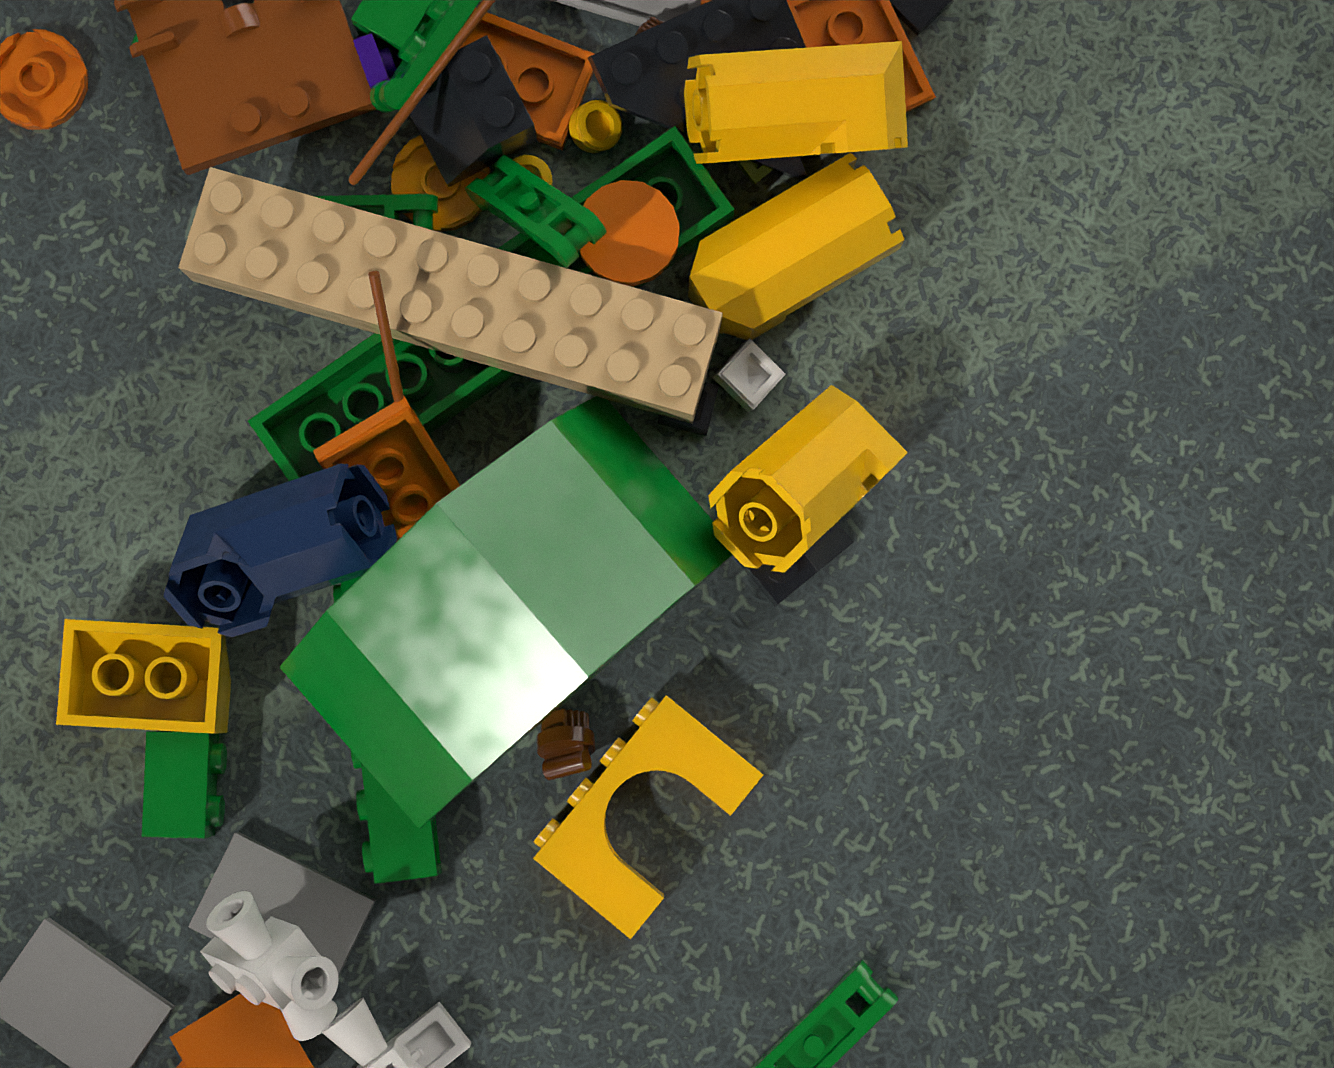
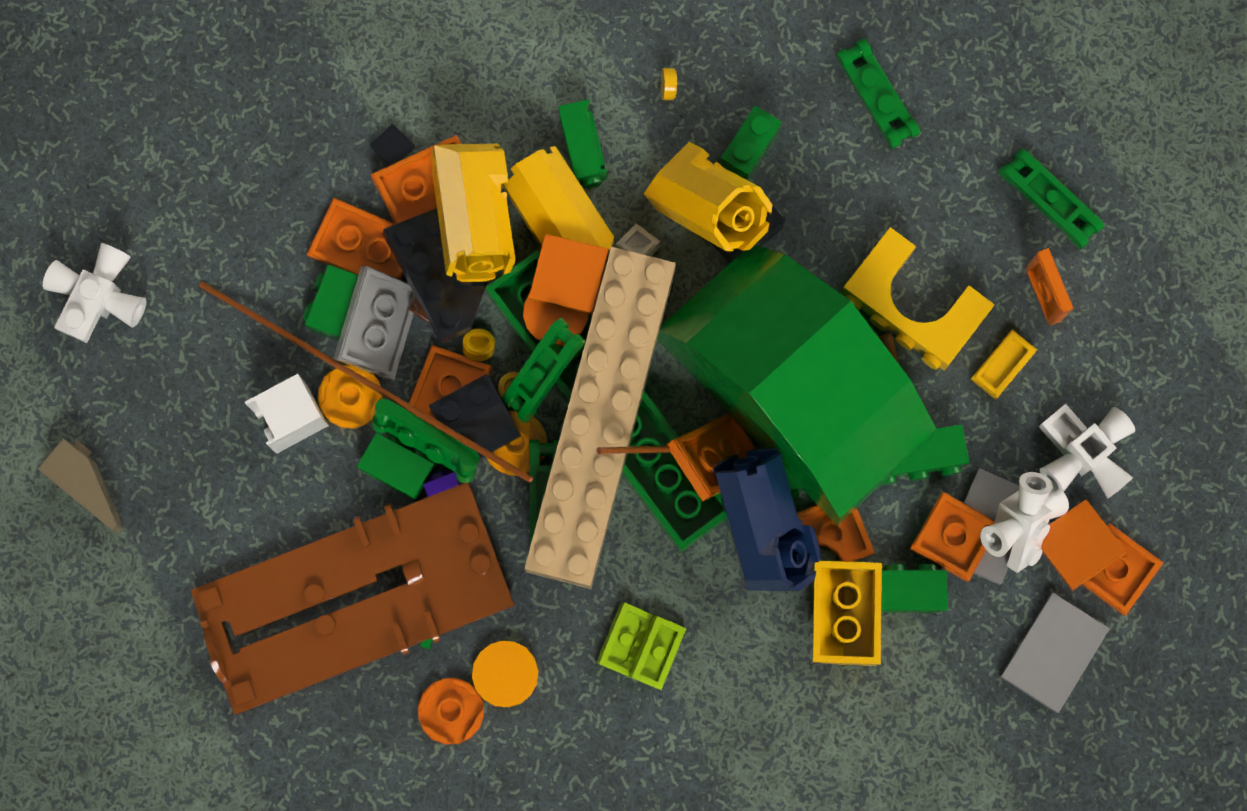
camera: 90 degrees left, 5 degrees down
(87, 160) = (505, 674): none -> light orange tile
(120, 364) = (641, 645): none -> lime slope
(263, 852) = (952, 536): none -> orange tile
(265, 690) = (846, 540): none -> orange tile
(542, 951) = (1003, 364): none -> yellow tile
(655, 1029) = (1049, 287): none -> orange tile
(684, 248) = (569, 274): none -> orange tile
(908, 557) = (751, 143): none -> green brick
(915, 290) = (583, 143): none -> green window
(995, 768) = (877, 93): none -> green plate
(1014, 430) = (668, 84): none -> yellow tile

